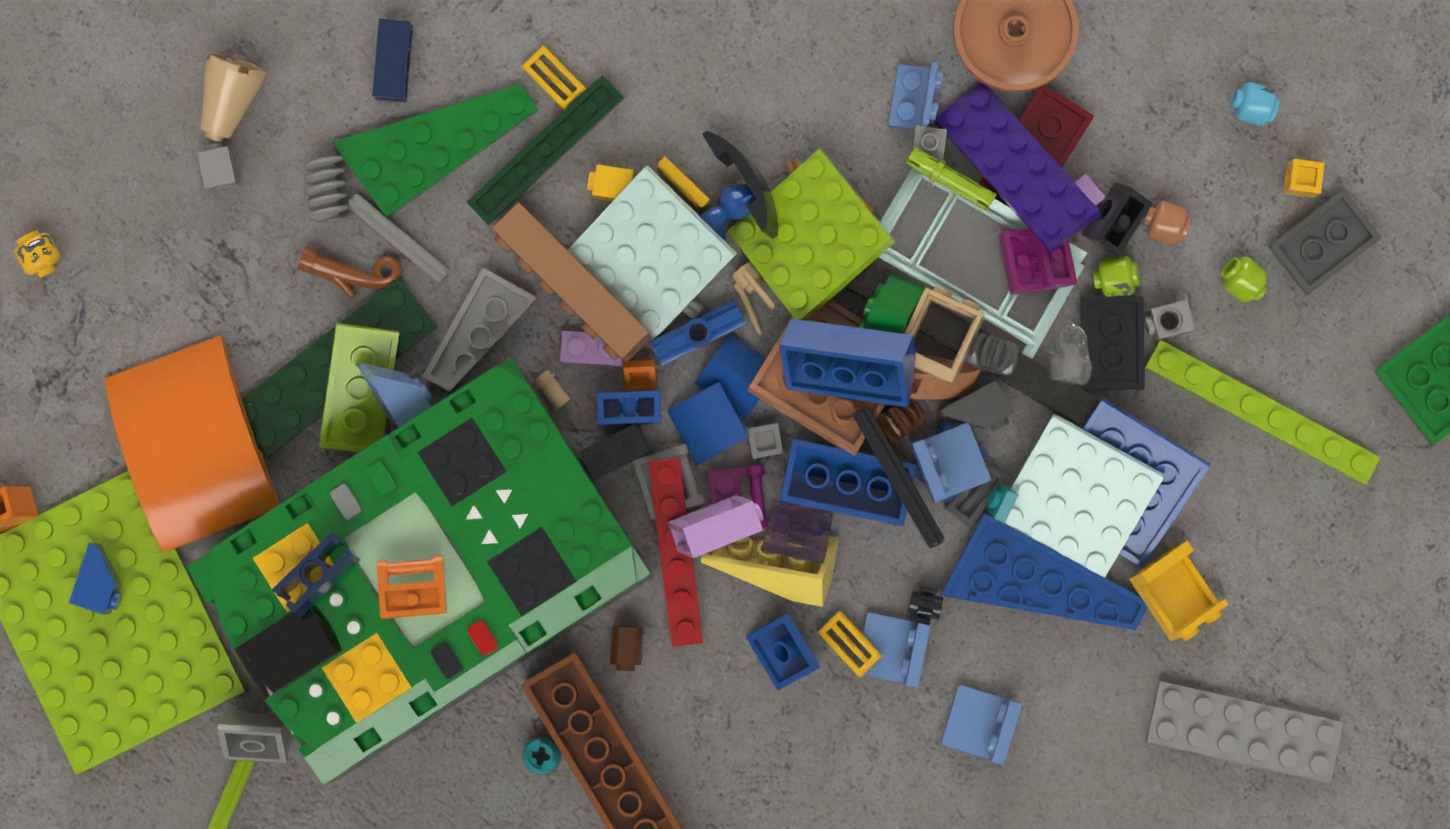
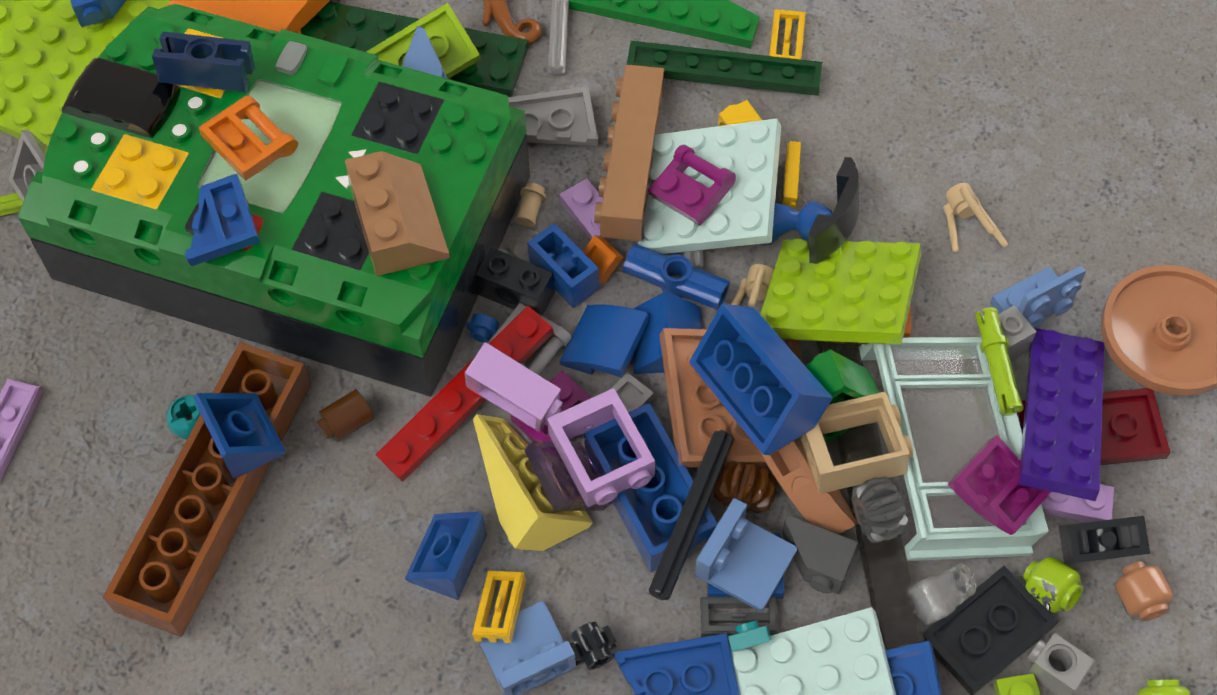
camera: 55 degrees right, 25 degrees down
(469, 651) = (221, 222): none -> blue wing
(559, 527) = (395, 212): none -> medium nougat slope
(601, 732) = (240, 430): none -> blue slope
(629, 500) = (482, 327): none -> blue plate
(644, 280) = (686, 194): none -> magenta plate
(775, 495) = (589, 416): none -> lavender window
(802, 76) = (965, 204): none -> tan plant

